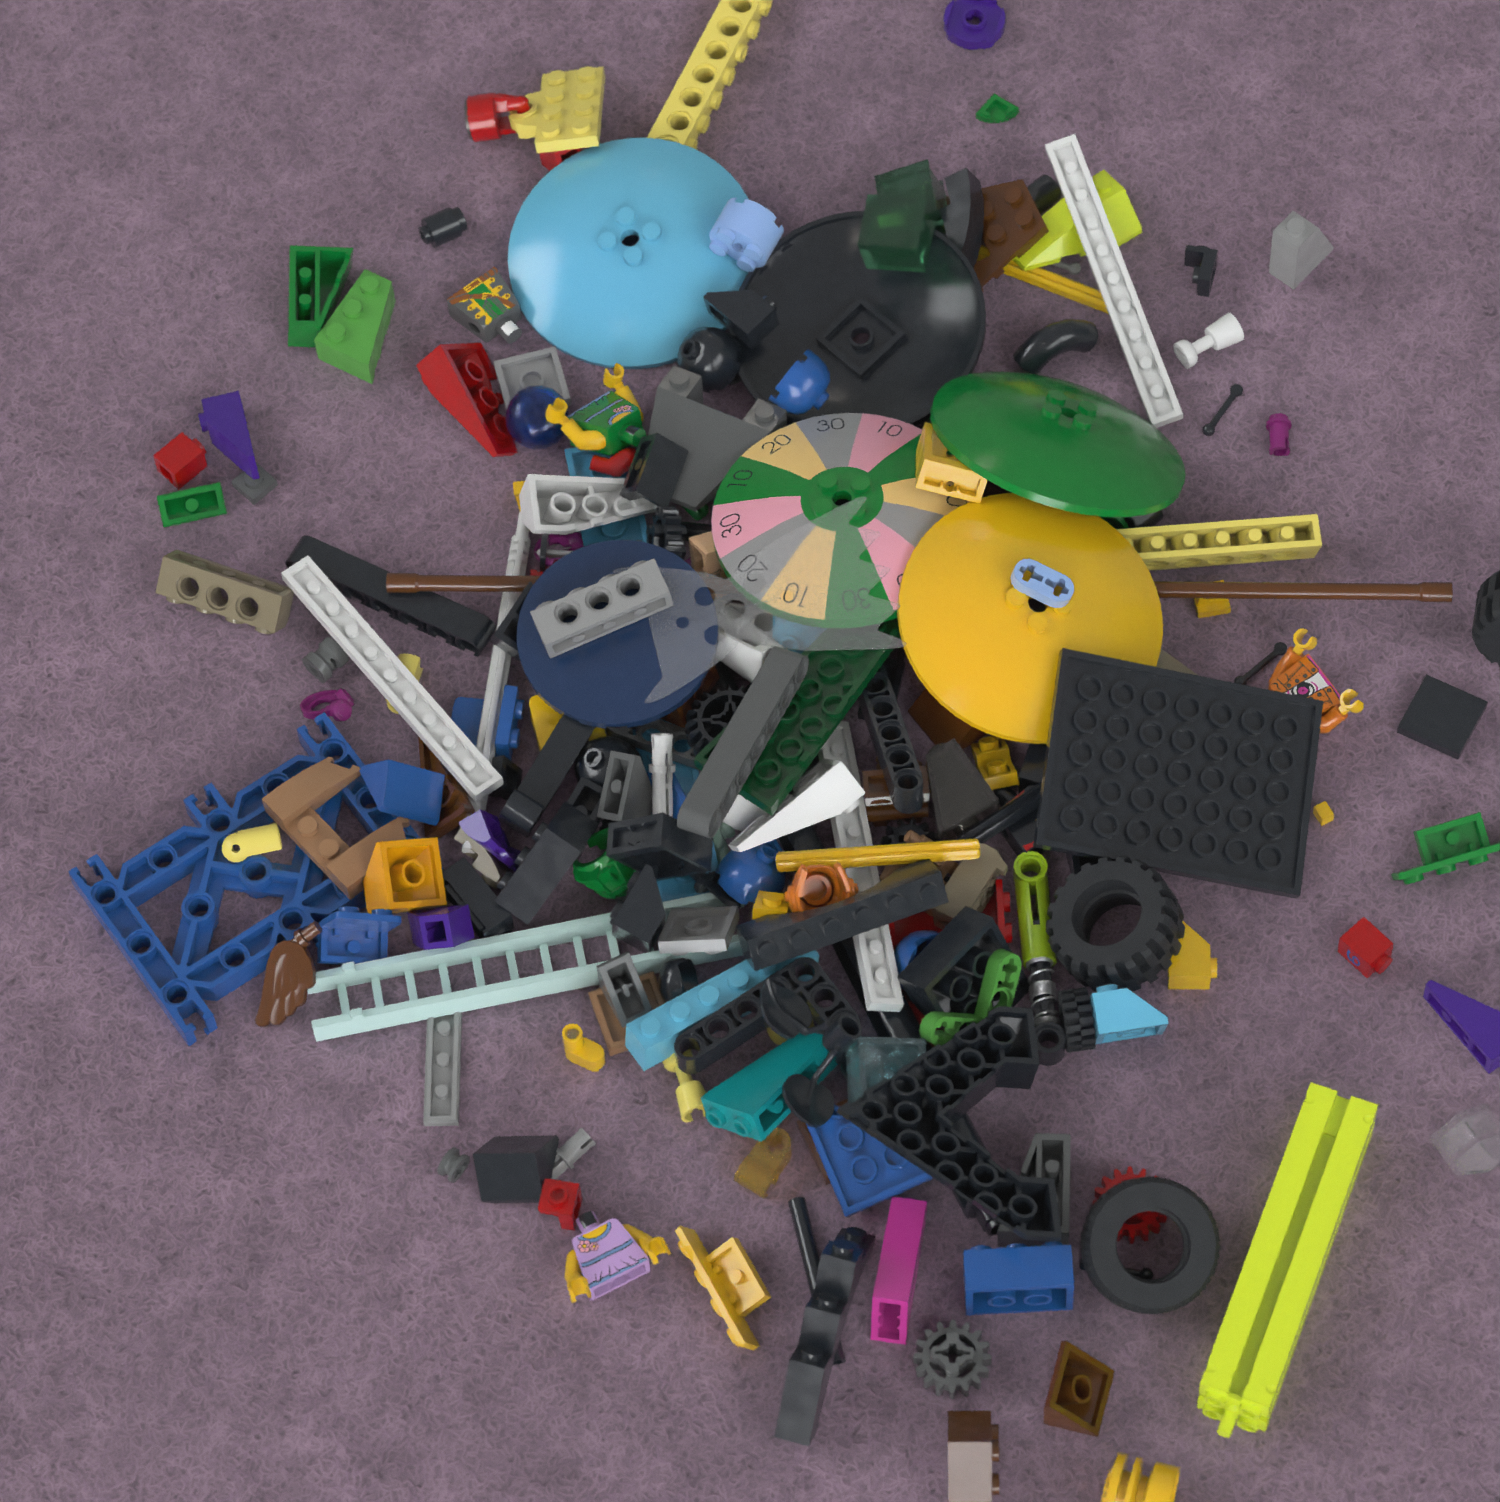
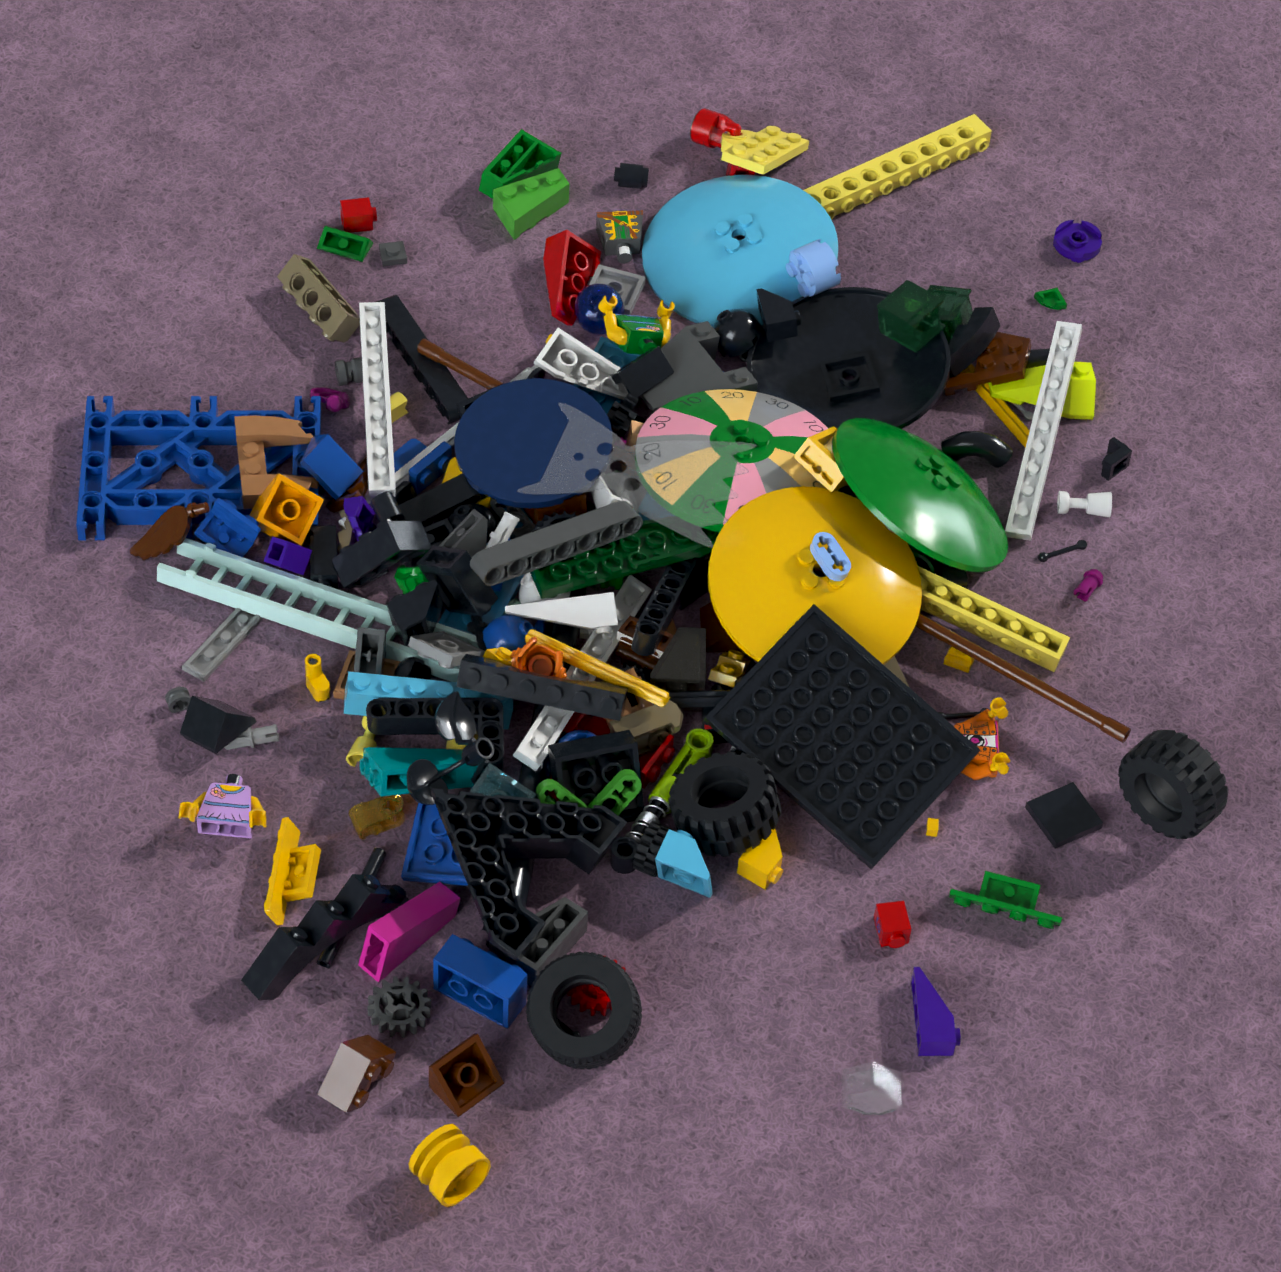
camera: 25 degrees right, 10 degrees down
(229, 430) = (402, 213): dark purple slope -> none
(252, 842) = (209, 439): light yellow piece -> none
(561, 1200) = (226, 757): red bracket -> none
(594, 623) = (531, 417): light grey brick -> none
(613, 466) = (619, 358): red arm -> none
(803, 386) = (779, 372): blue cylinder -> none
(1286, 1260) = (673, 1079): neon yellow brick -> none
(1296, 249) = (1188, 478): light grey slope -> none

